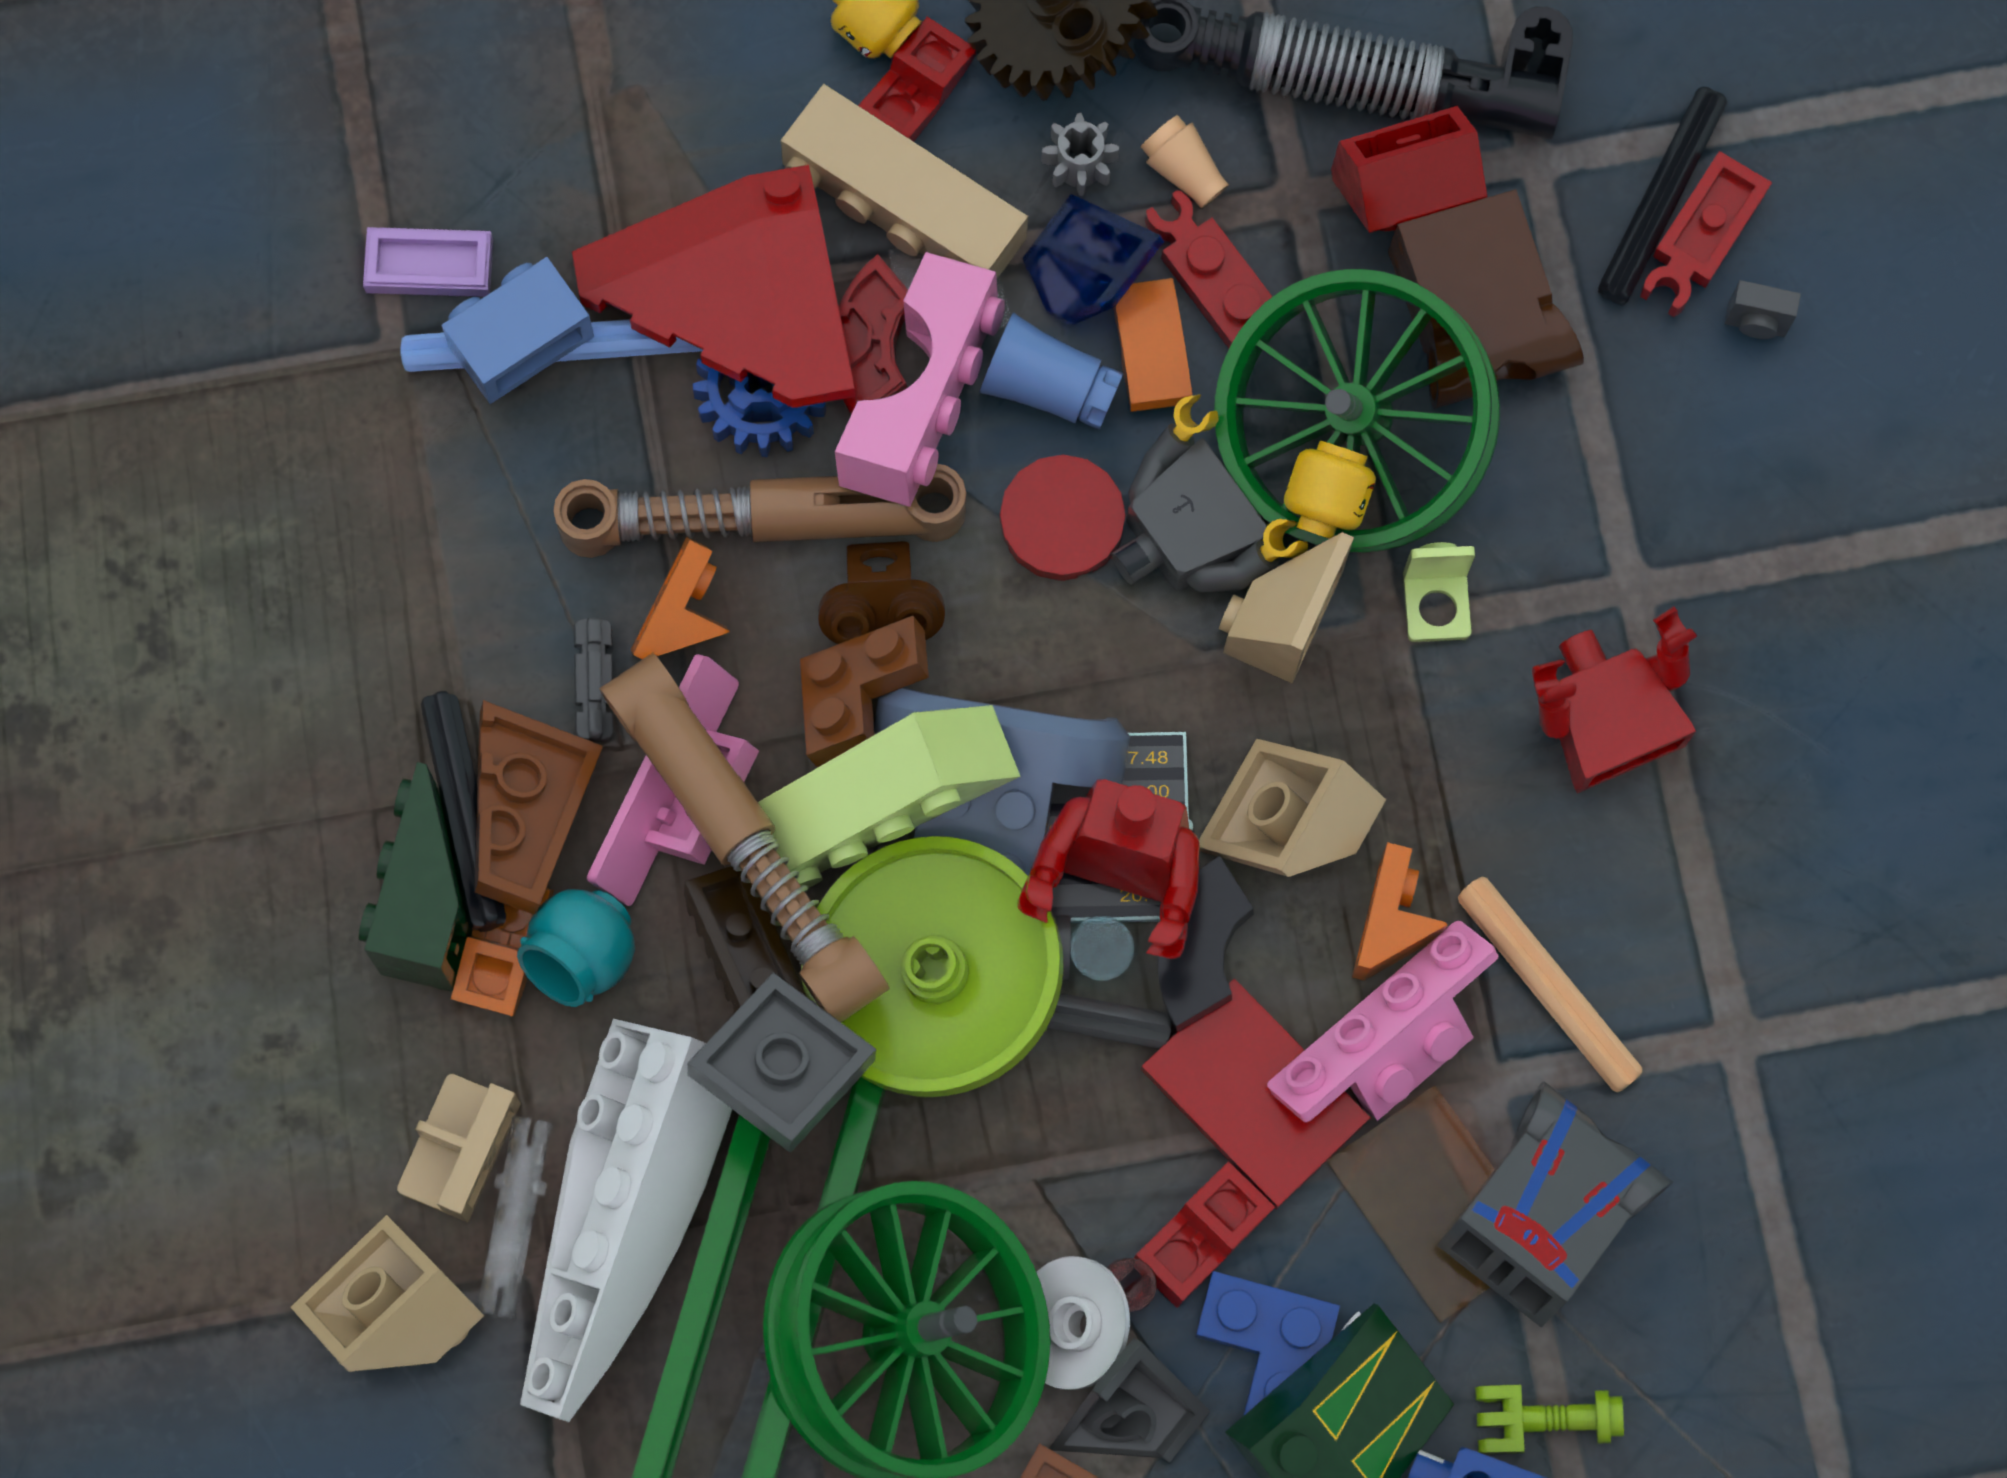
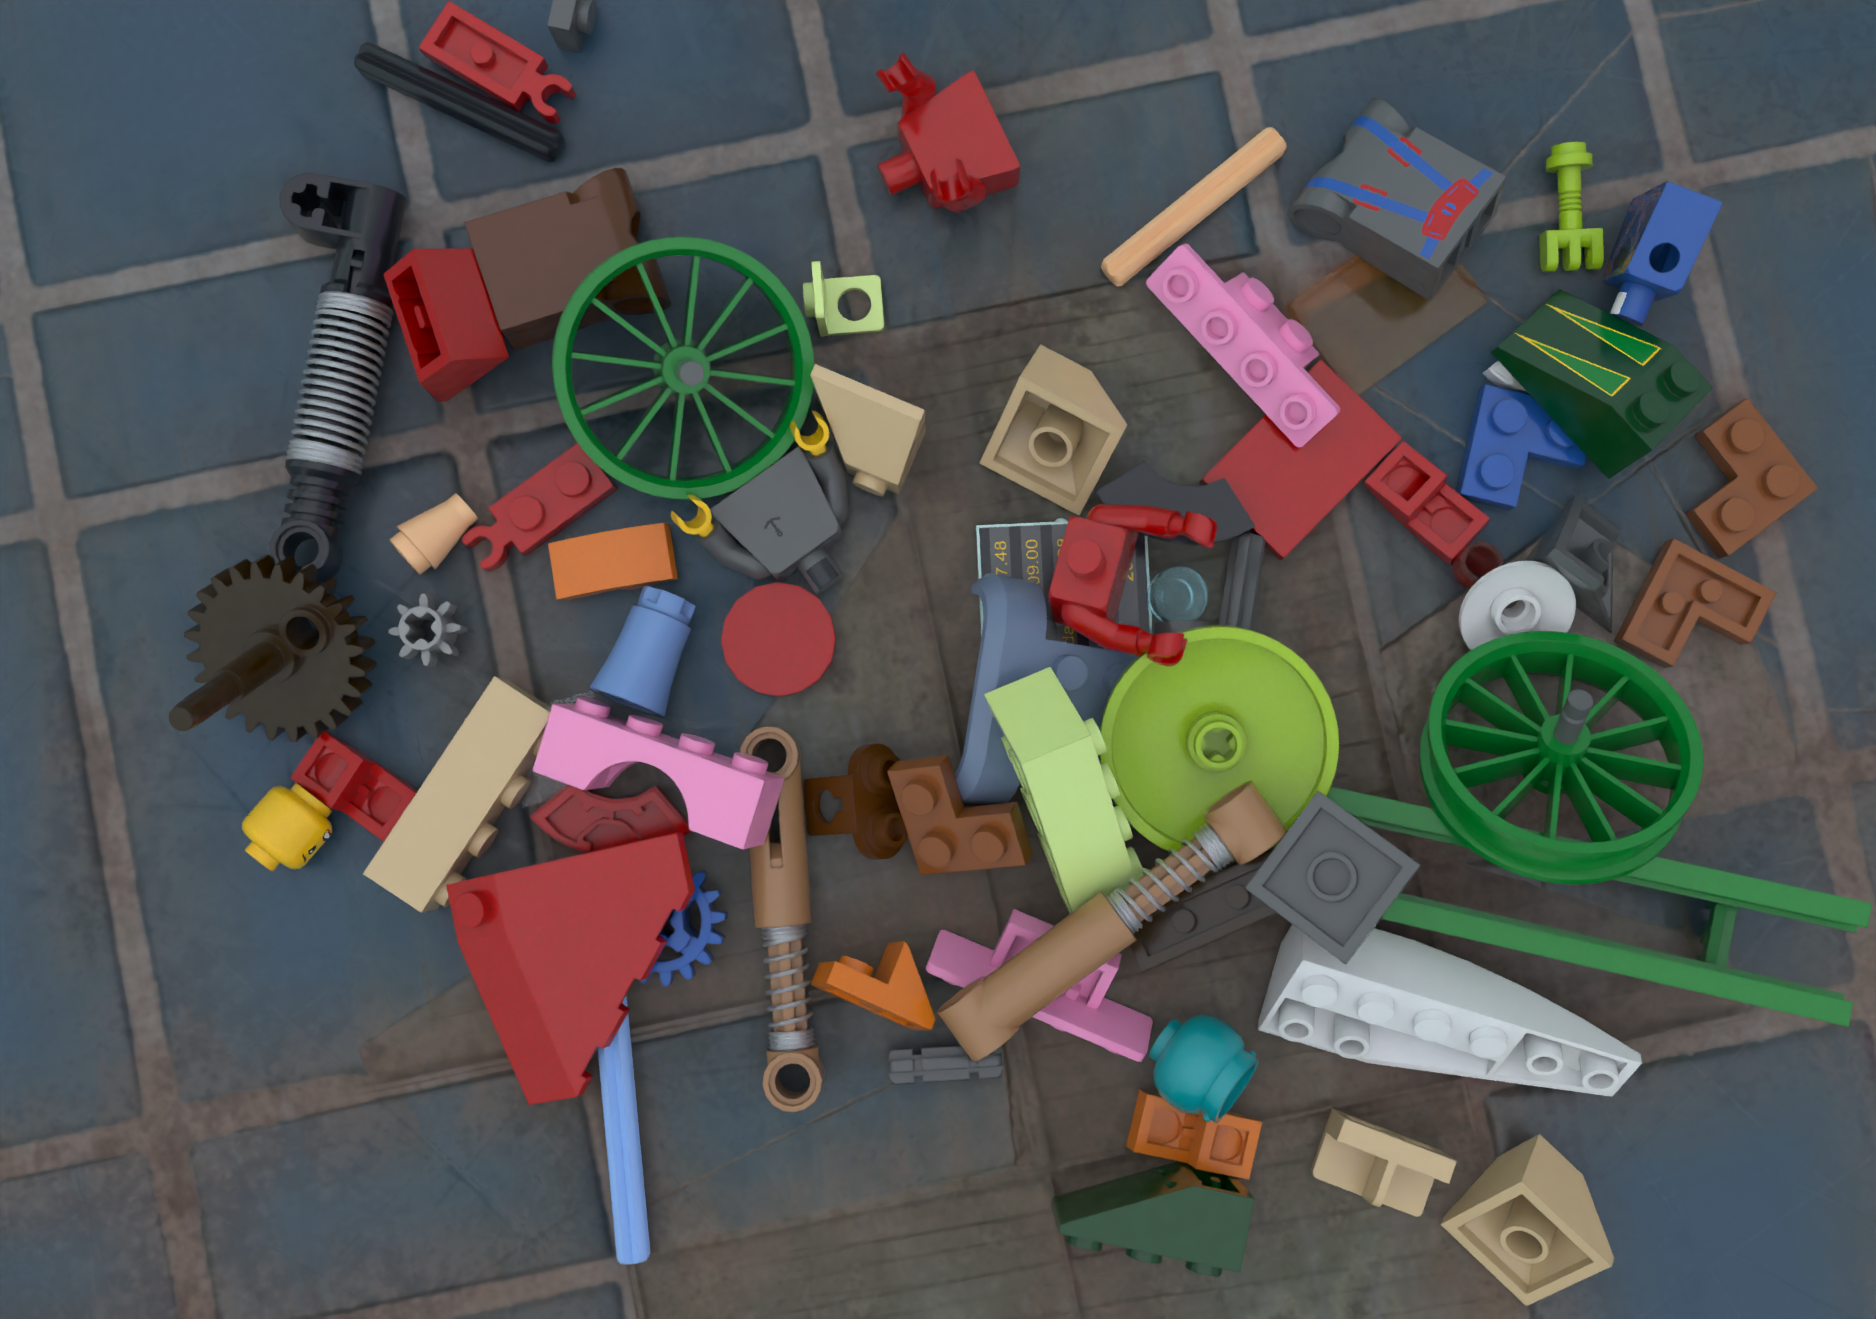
camera: 90 degrees left, 10 degrees up
(428, 262) = (541, 1242): lavender tile -> none
(459, 802) = (1077, 1178): black axle -> none
(514, 1216) = (1419, 1107): clear pin -> none
(517, 328) = (615, 1158): medium blue piece -> none
(525, 803) = (1072, 1121): dark orange wing -> none
(1087, 259) = (532, 620): clear blue slope -> none
(1329, 489) = (765, 388): yellow head -> none
(1387, 931) = (1158, 348): orange slope -> none

